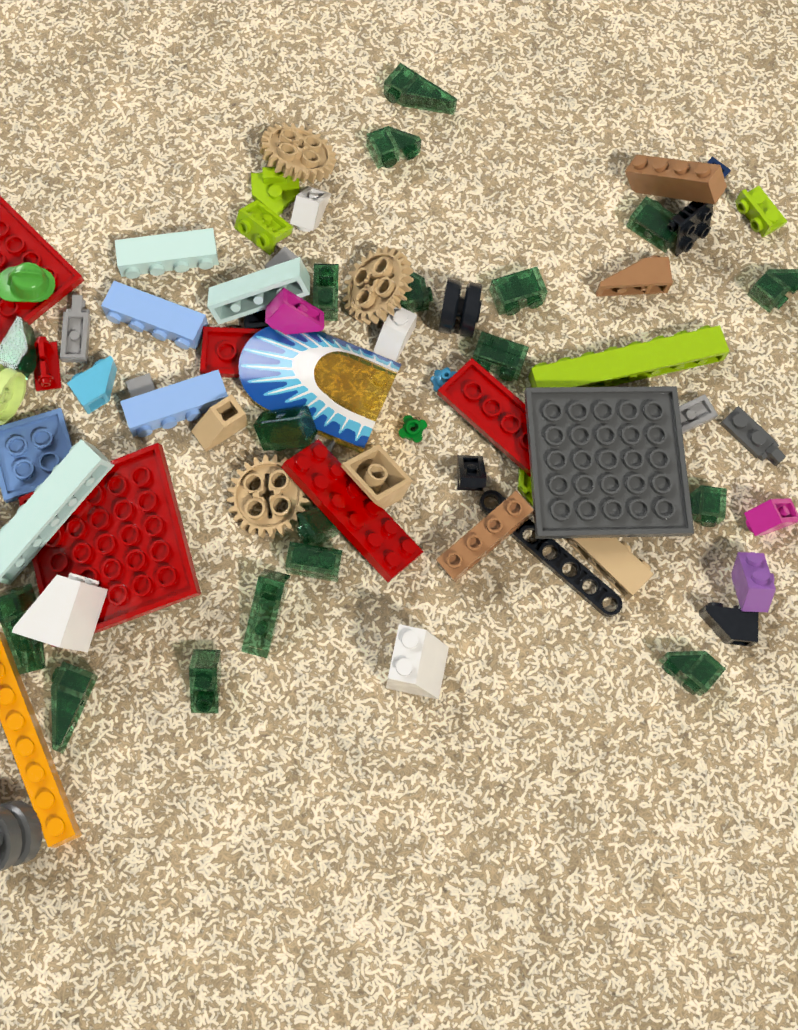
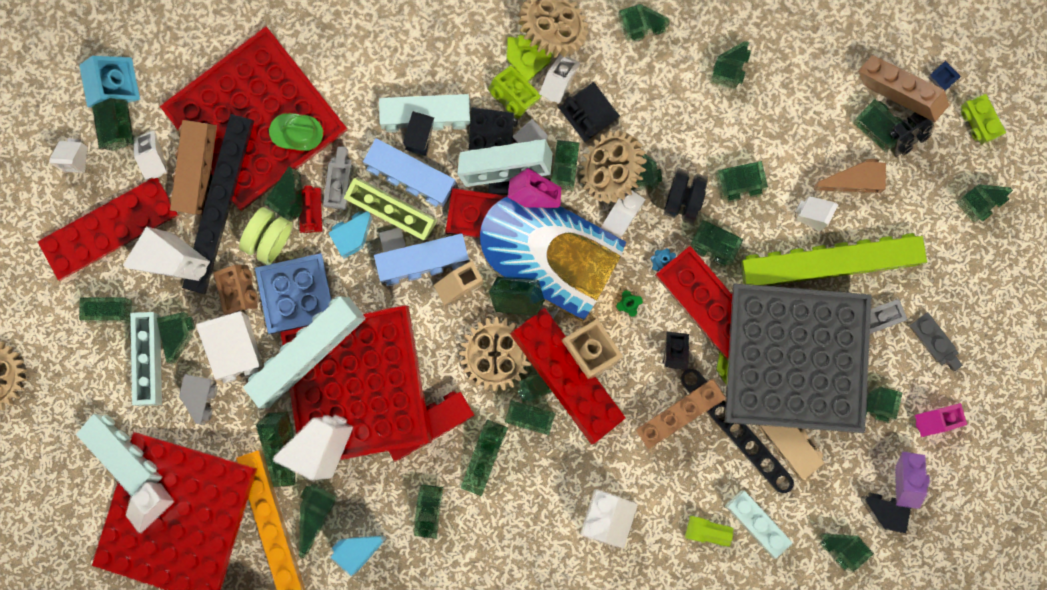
camera: 15 degrees right, 10 degrees up
(122, 733) = (355, 552): none -> medium azure slope
(135, 352) = (390, 208): none -> yellowish green brick
(161, 272) = (419, 133): none -> black slope
(213, 574) = (441, 420): none -> red brick
(240, 258) = (490, 128): none -> black hinge
(345, 239) = (589, 112): none -> black hinge
(488, 180) = (729, 66): none -> clear green slope
(530, 667) = (704, 530): none -> lime piece
(589, 652) = (758, 524): none -> light aqua brick
(602, 313) = (815, 212): none -> white slope

